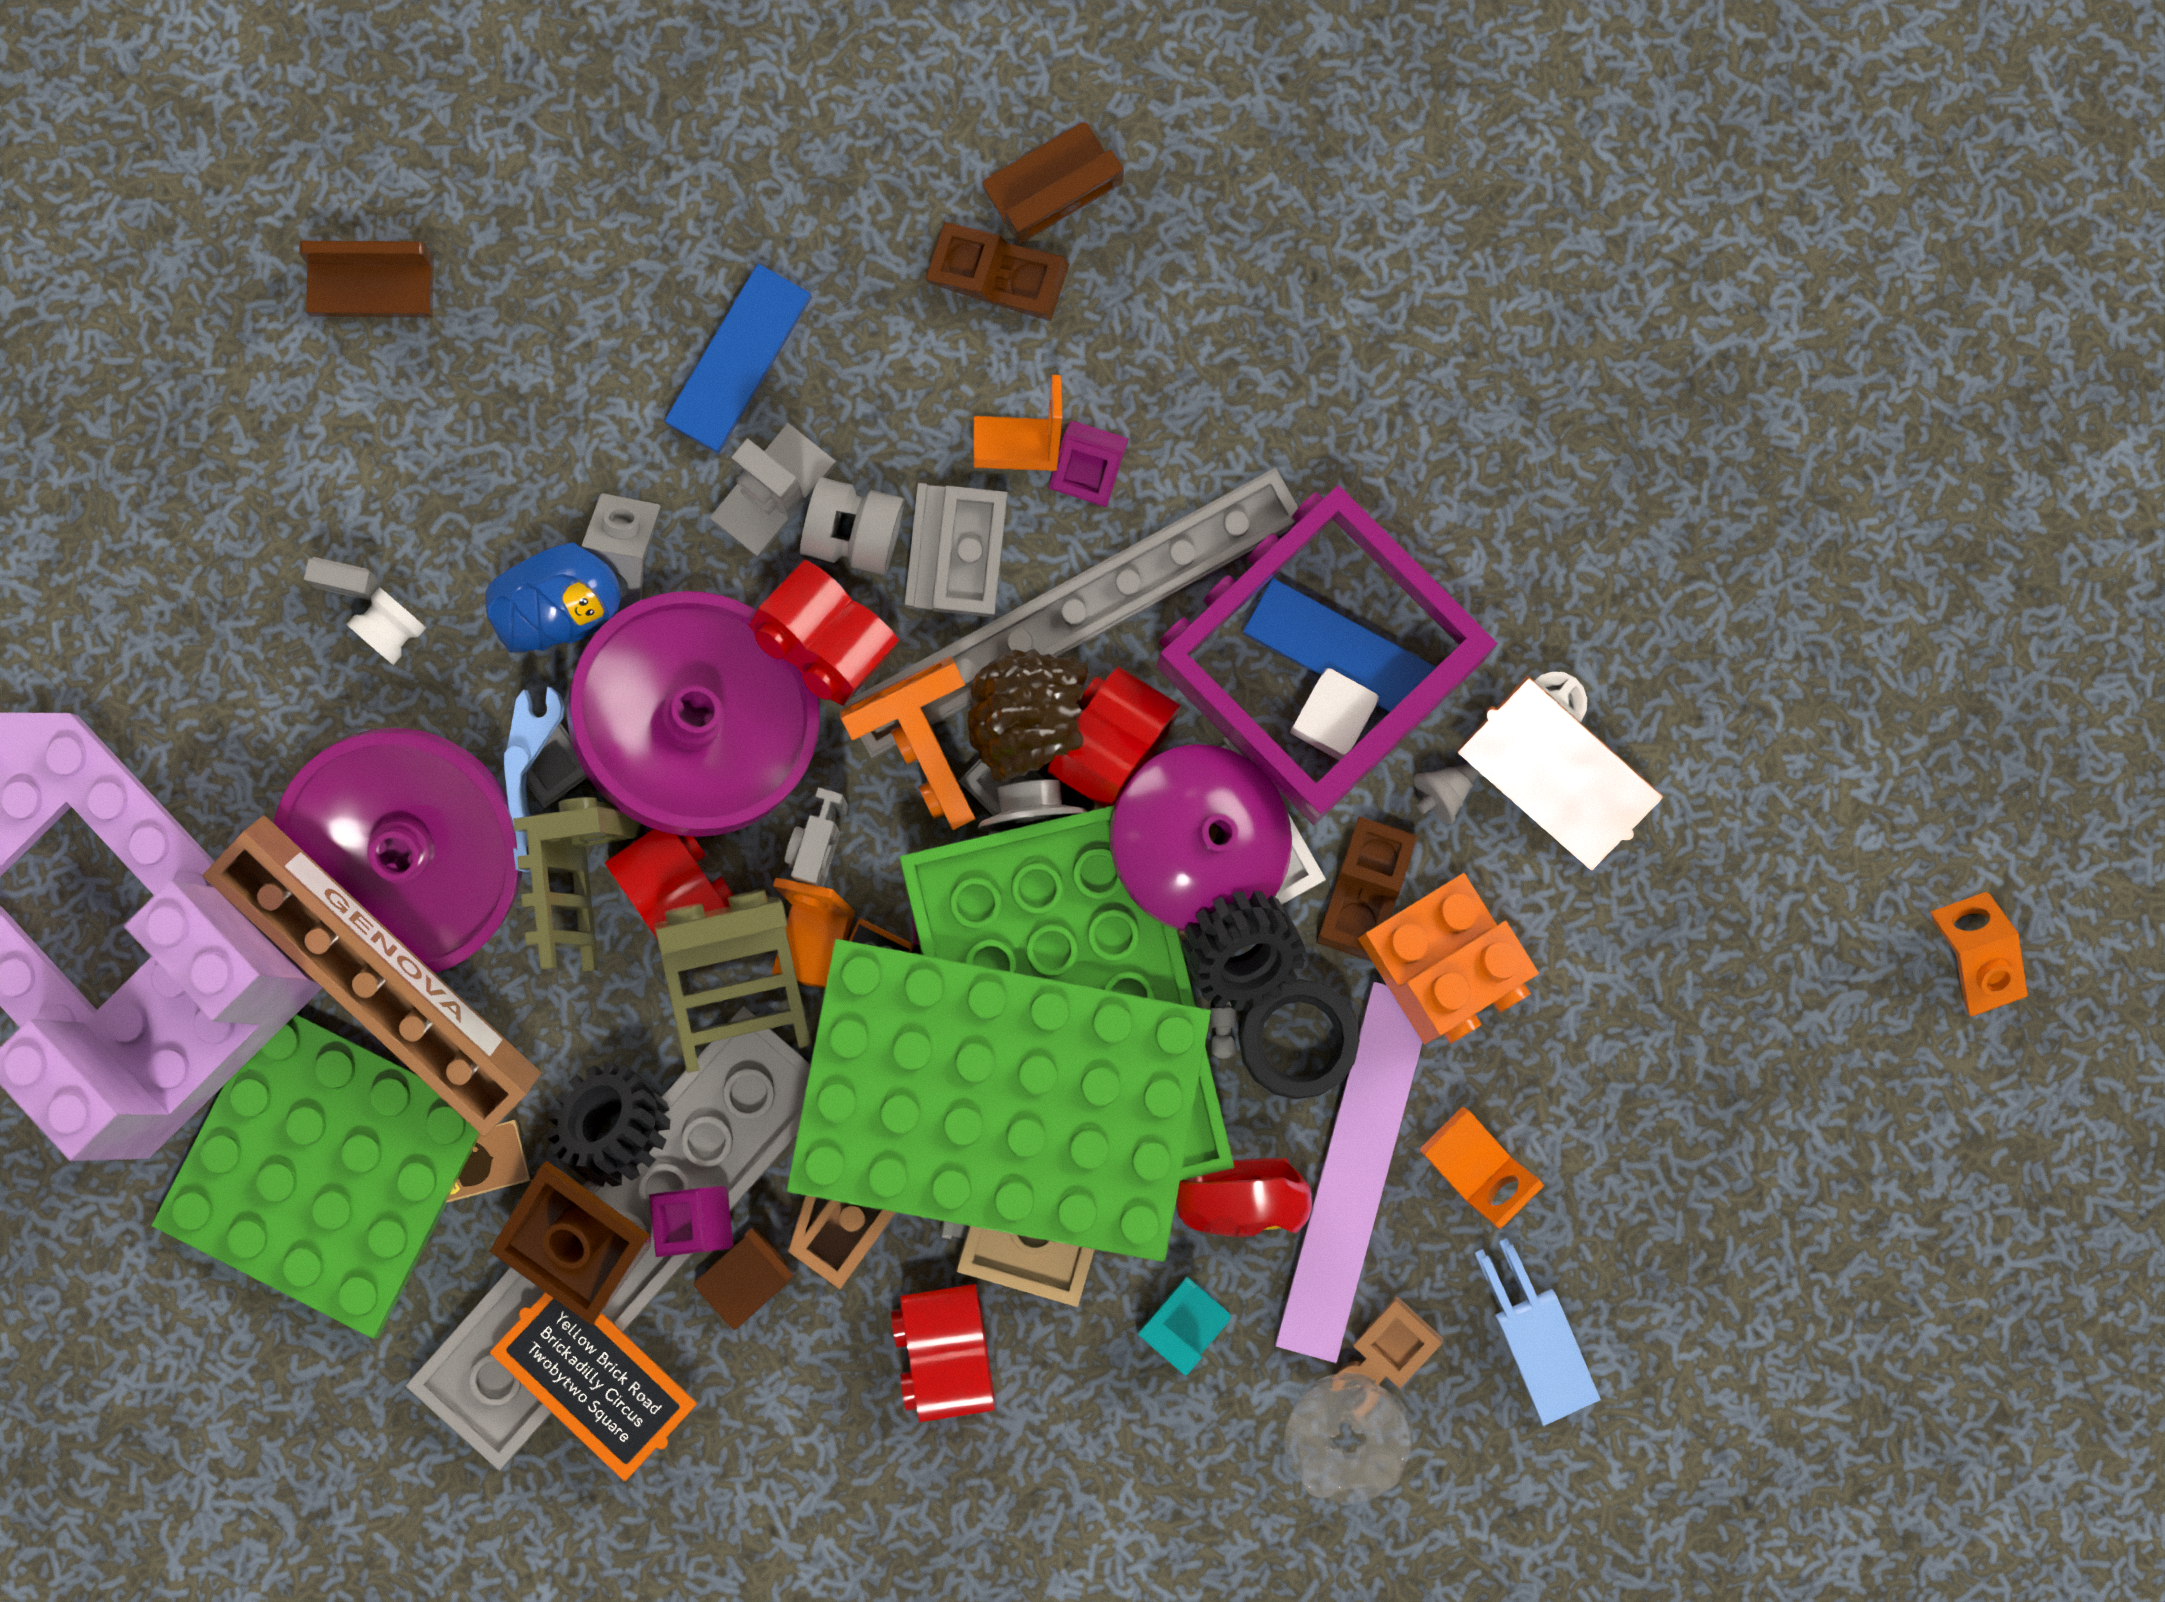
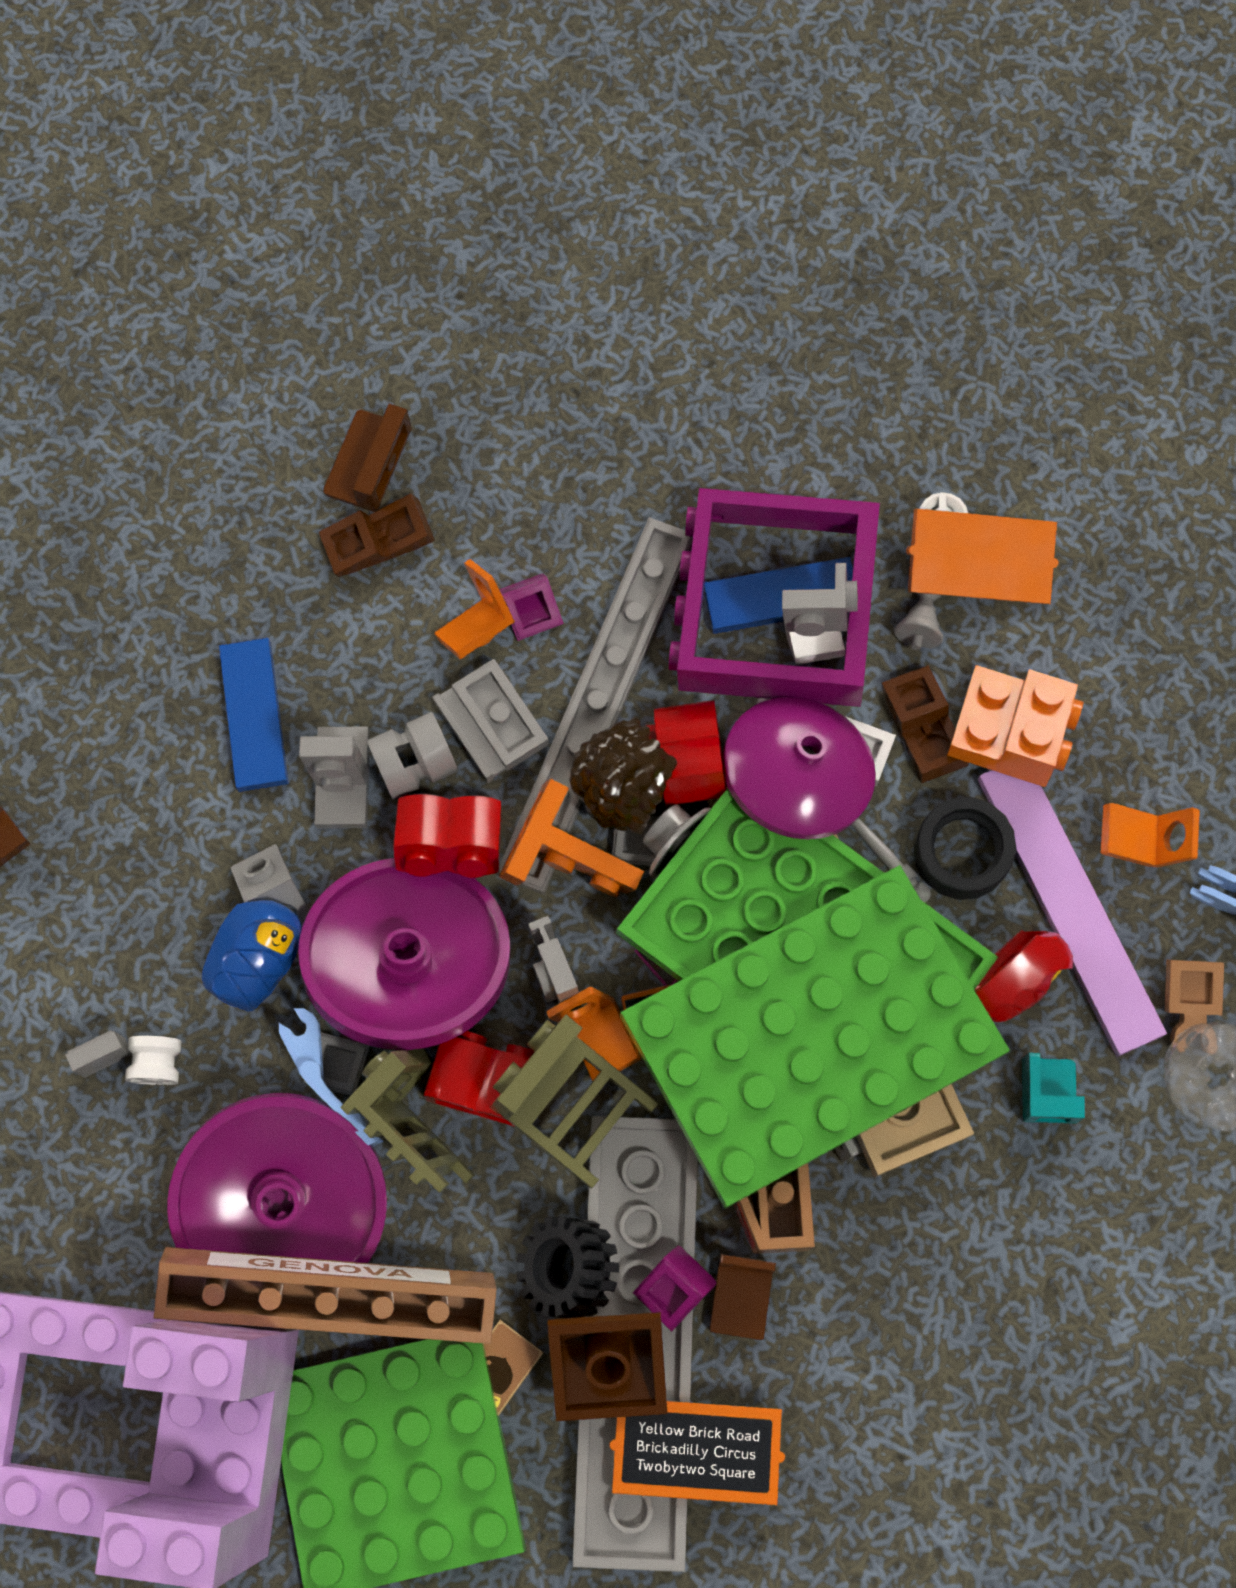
camera: 30 degrees left, 10 degrees down
(945, 1353) = (915, 1236): red brick -> none
(1232, 928) = (866, 809): black tyre -> none
(1333, 707) = (820, 610): none -> light grey bracket

